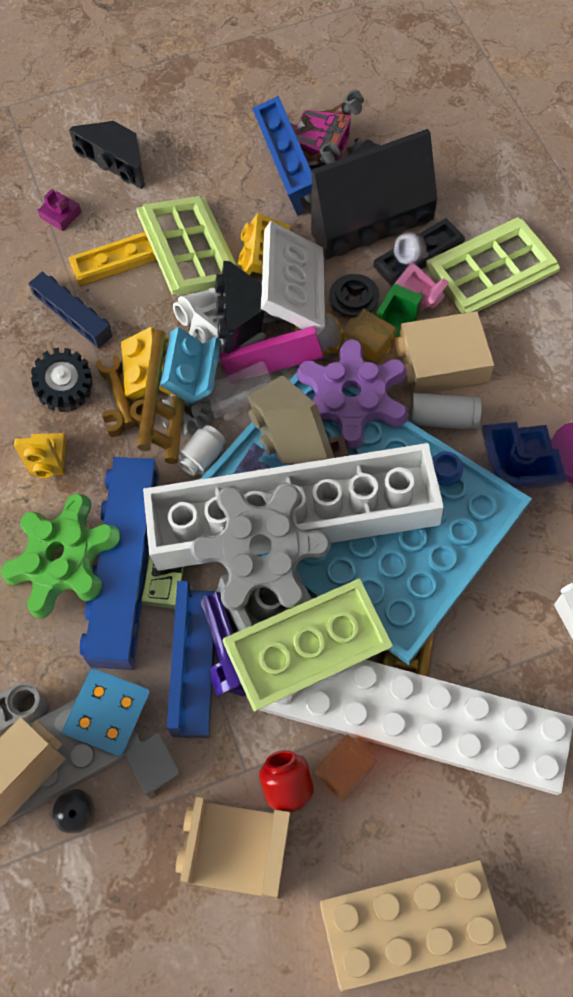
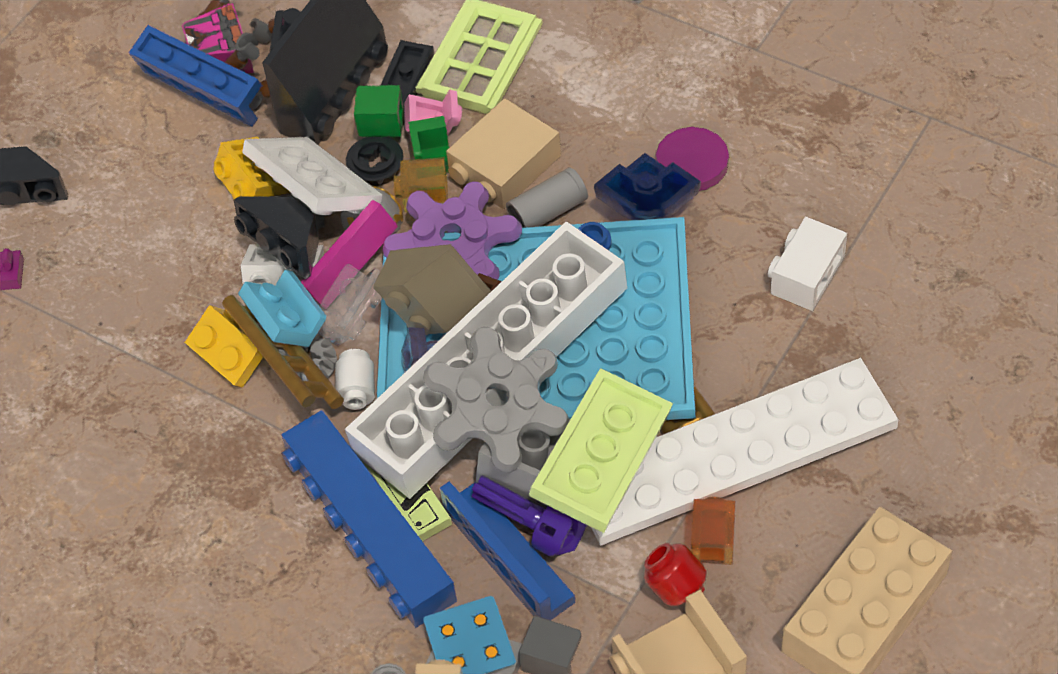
camera: 35 degrees left, 10 degrees down
(43, 454) = (205, 483): yellow bracket -> none
(61, 379) = (160, 410): black wheel -> none
(69, 571) = (329, 553): bright green plate -> none
(71, 309) = (103, 348): dark blue piece -> none
(112, 258) = (104, 274): yellow tile -> none
(127, 415) = (244, 402): pearl gold bar -> none
(185, 243) = (169, 215): yellowish green piece -> none
(188, 304) = (226, 267): white cone -> none
(381, 261) = (379, 111): none -> green panel
(410, 248) = (397, 76): tile -> none

